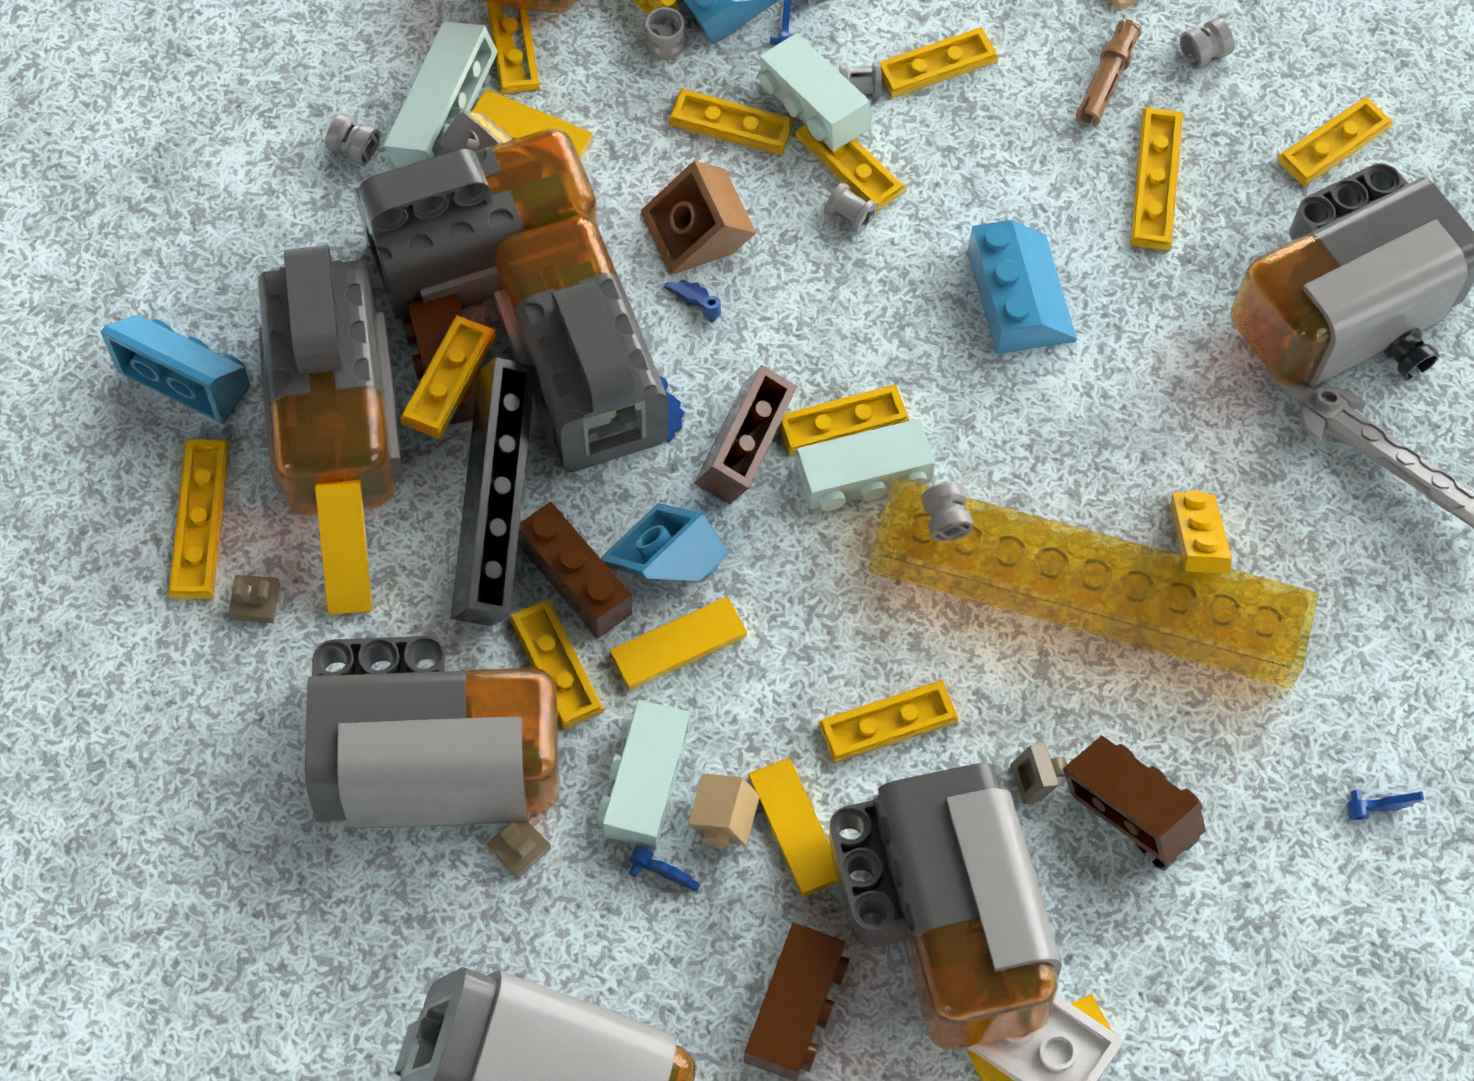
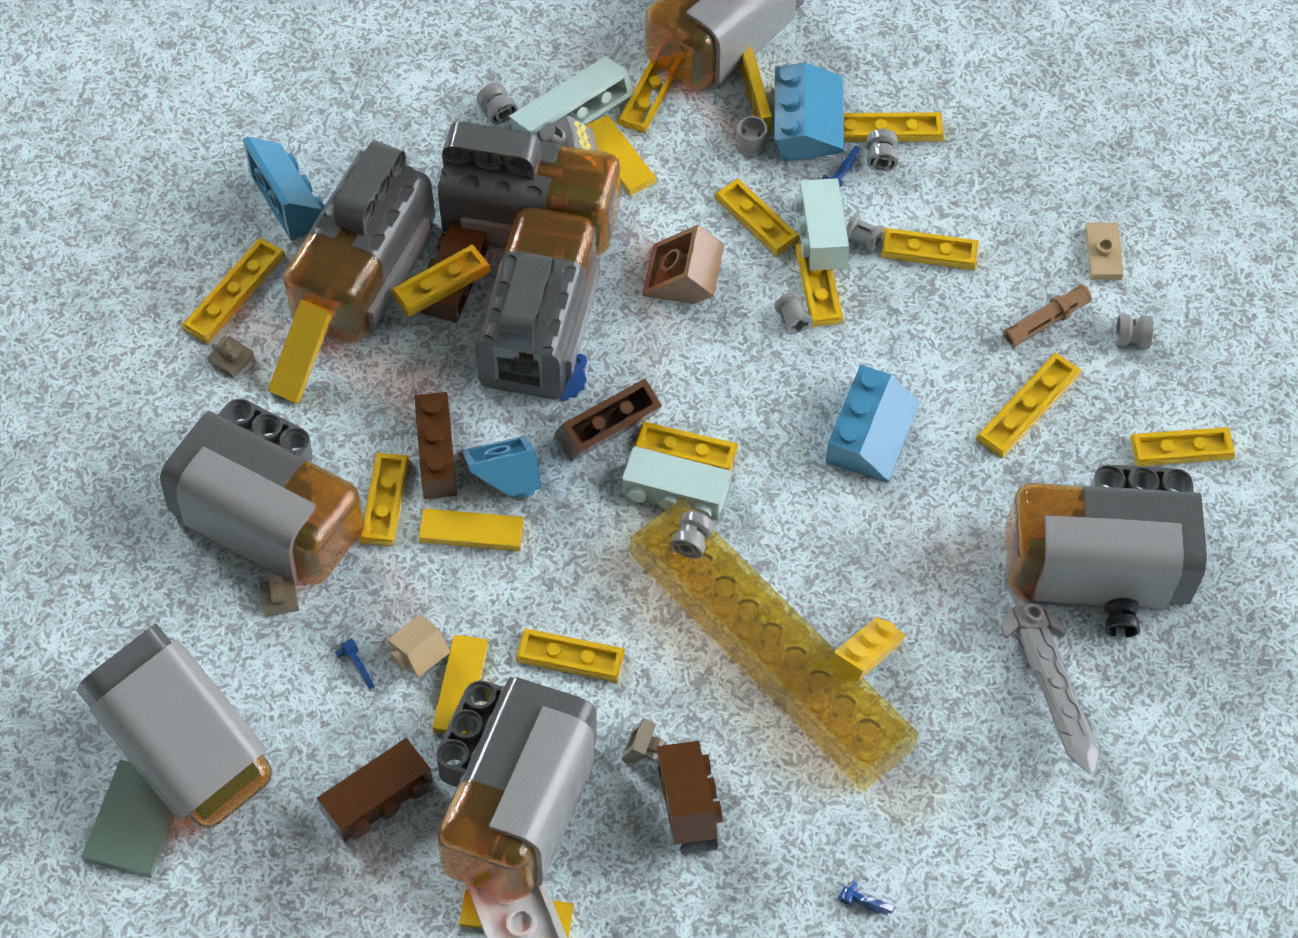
camera: 35 degrees right, 5 degrees down
(493, 493) = (415, 366): black brick -> none
(644, 774) = (387, 596): light aqua brick -> none
(694, 294) = (649, 317): blue piece -> none

